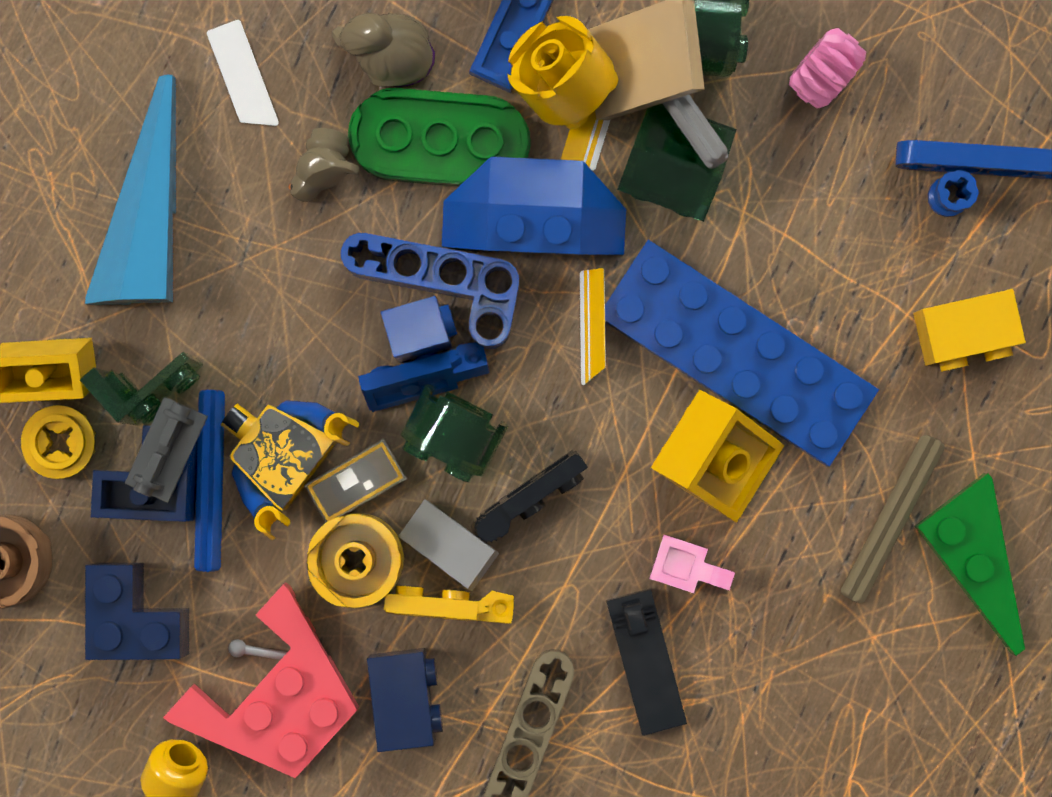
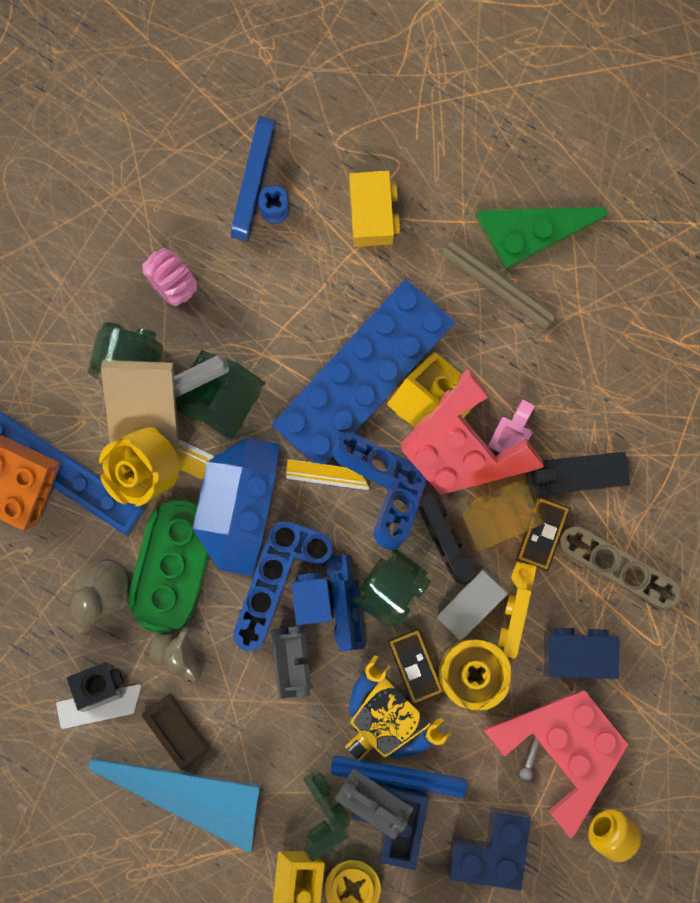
camera: 80 degrees left, 5 degrees down
(224, 180) = (175, 732): none -> dark brown tile
(265, 47) = (81, 686): none -> black brick
(345, 311) = (291, 673): none -> dark grey hinge
(558, 627) = (541, 543): none -> tile
(571, 575) = (505, 516): none -> clear yellow brick
(589, 421) = (397, 486): none -> blue beam
(646, 487) = (453, 453): none -> coral wing

